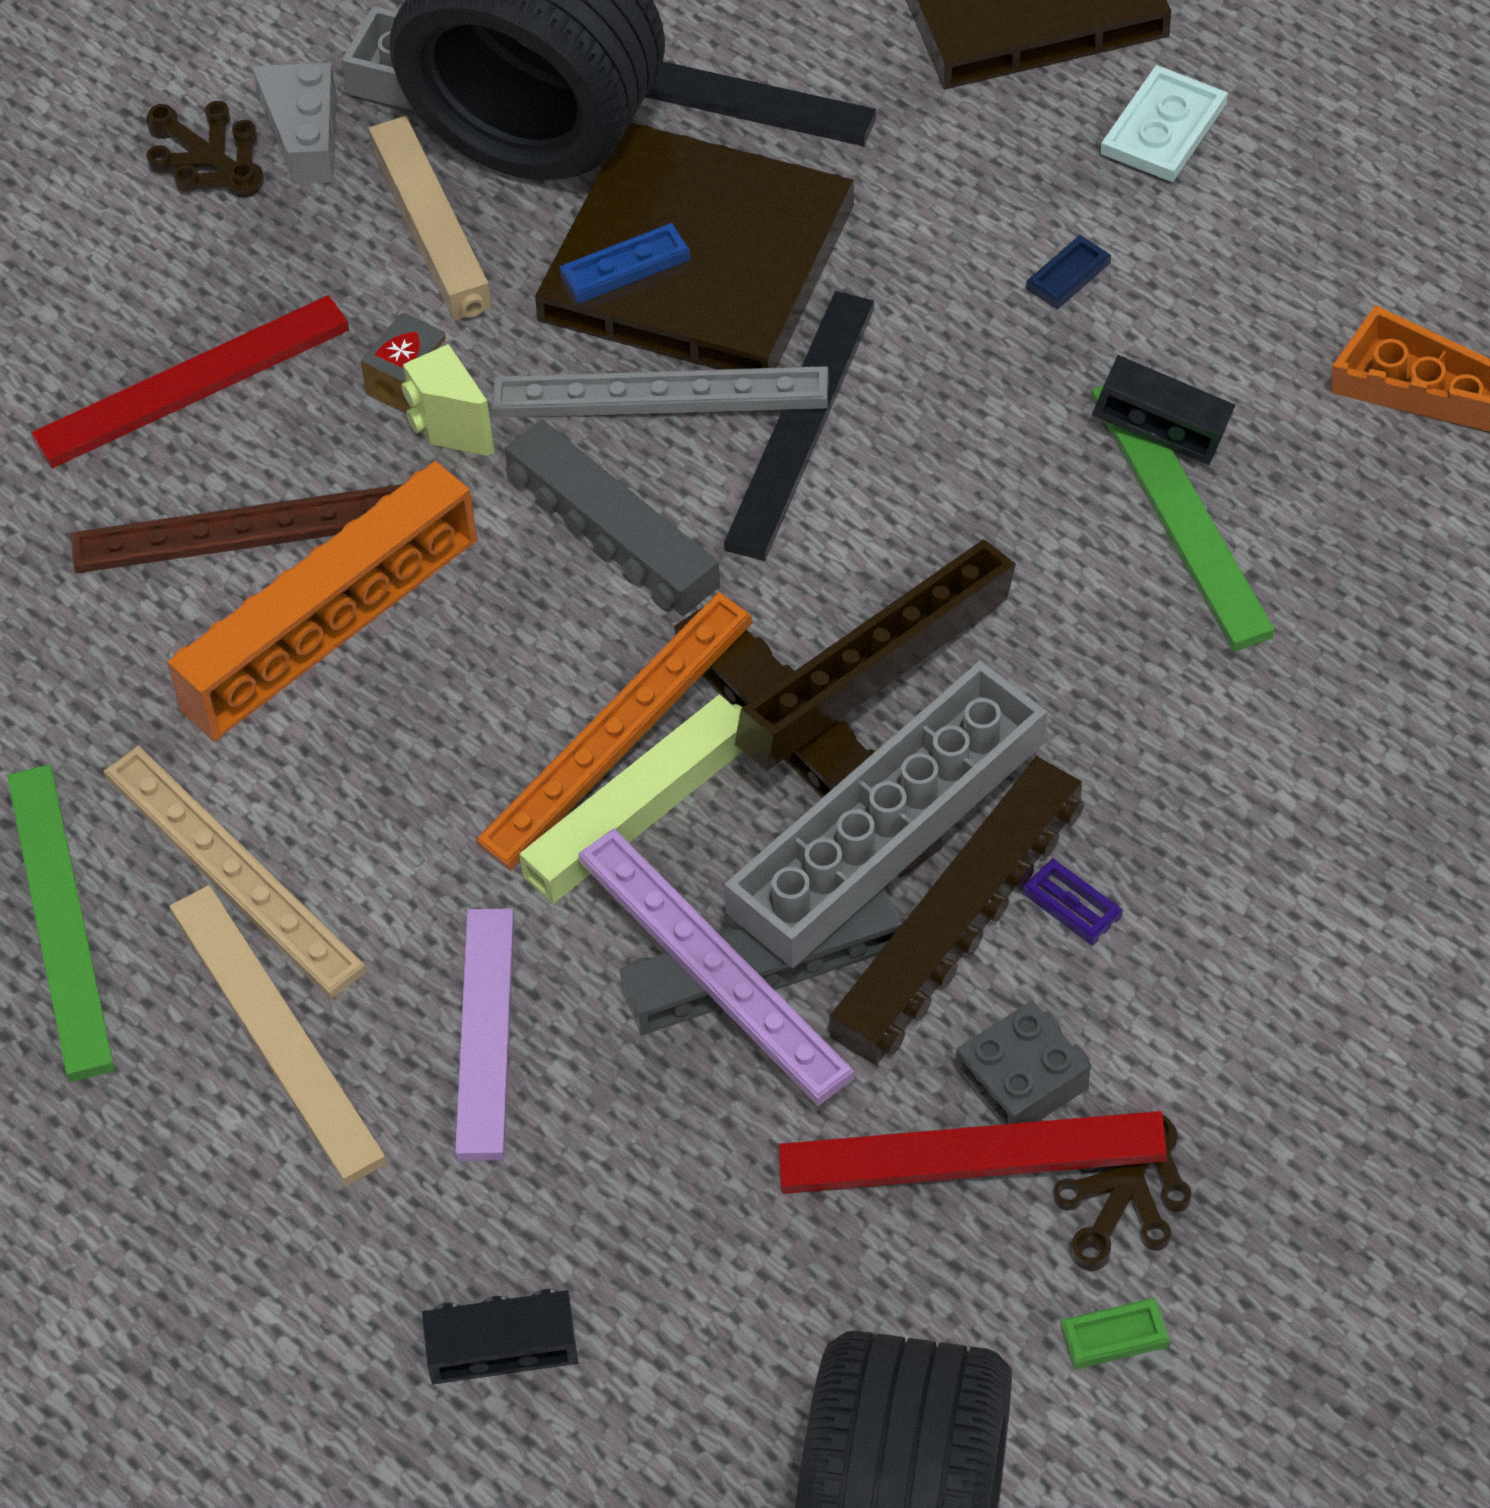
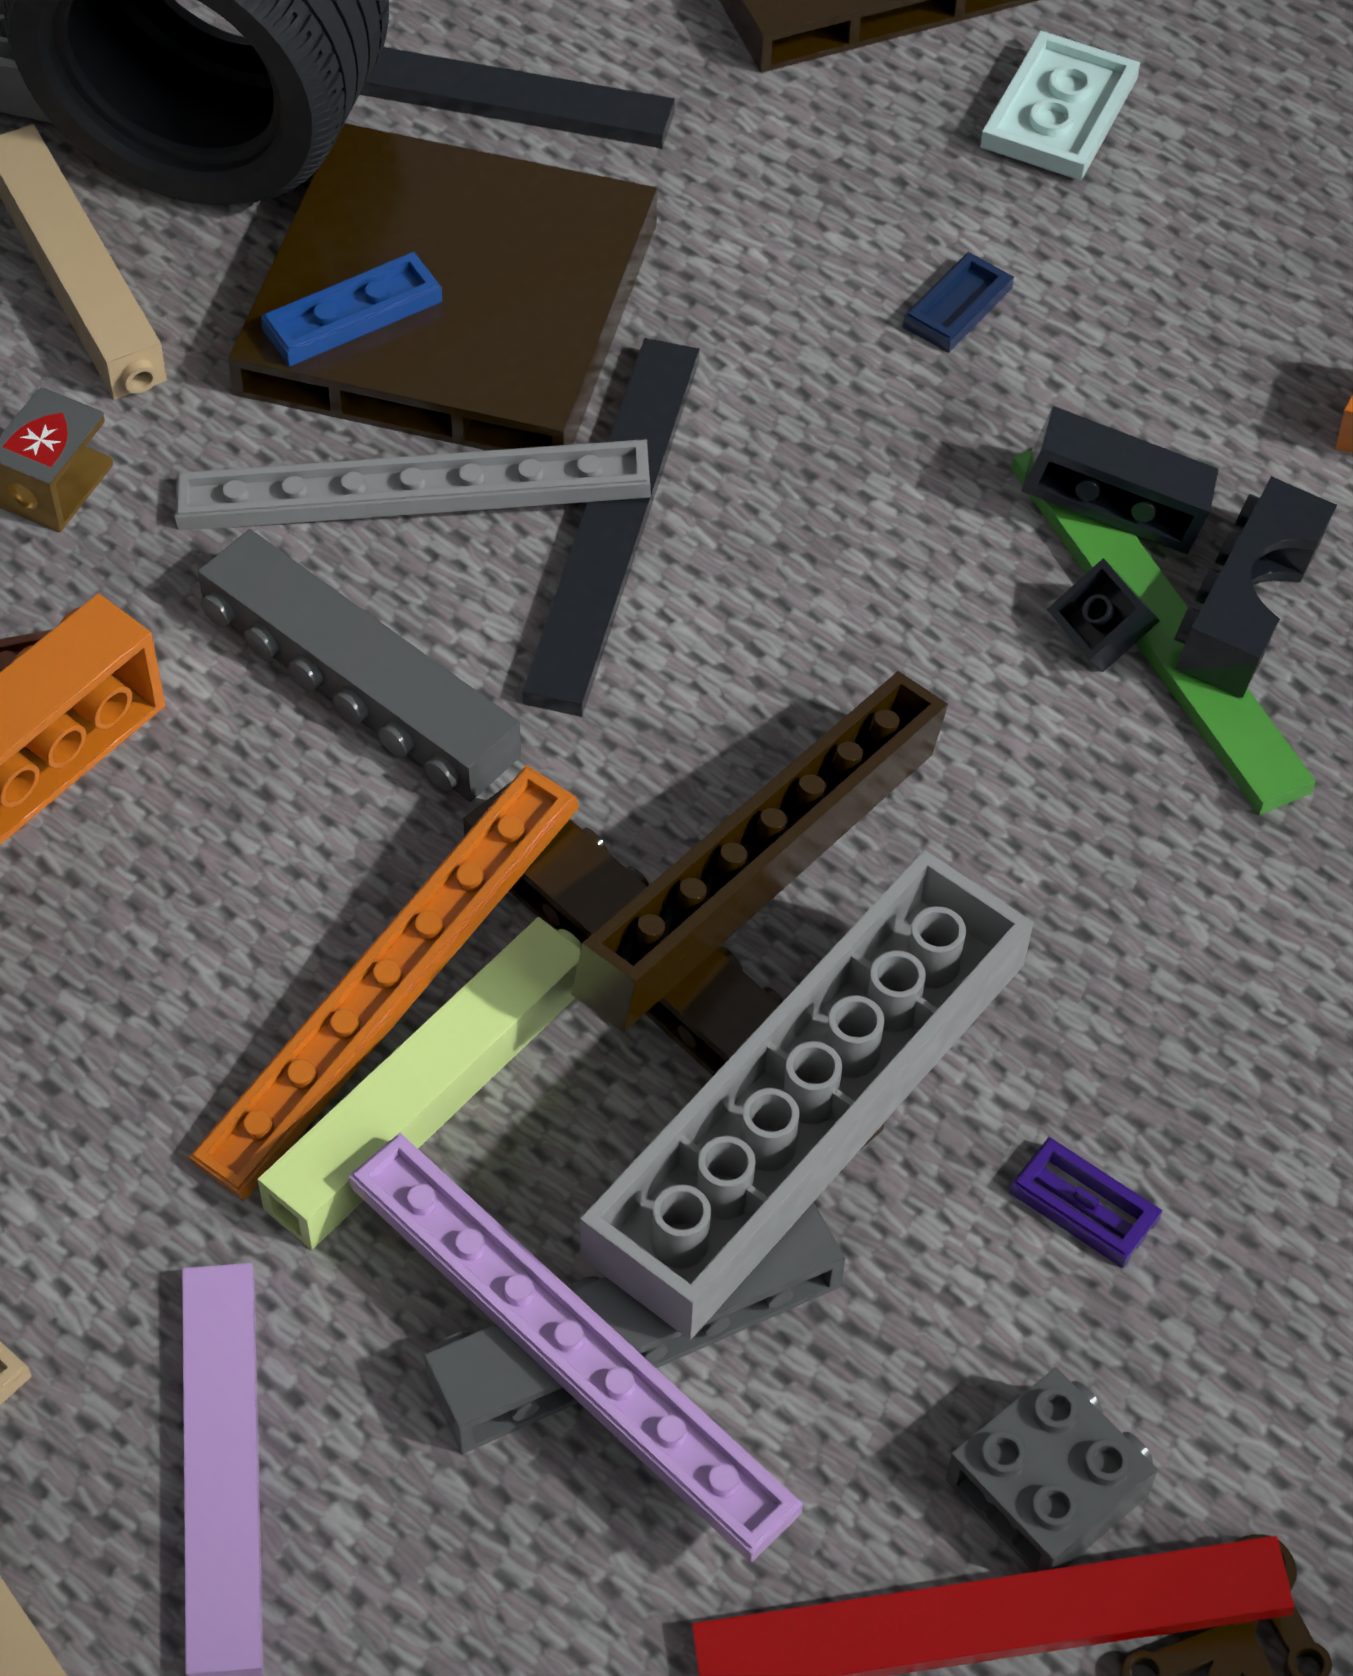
camera: 10 degrees left, 0 degrees up
(447, 403) = (111, 511): yellowish green slope -> none
(956, 912) = (915, 1235): dark brown brick -> none
(1139, 506) = (1103, 615): none -> black piece
(1271, 458) = (1234, 626): none -> black arch

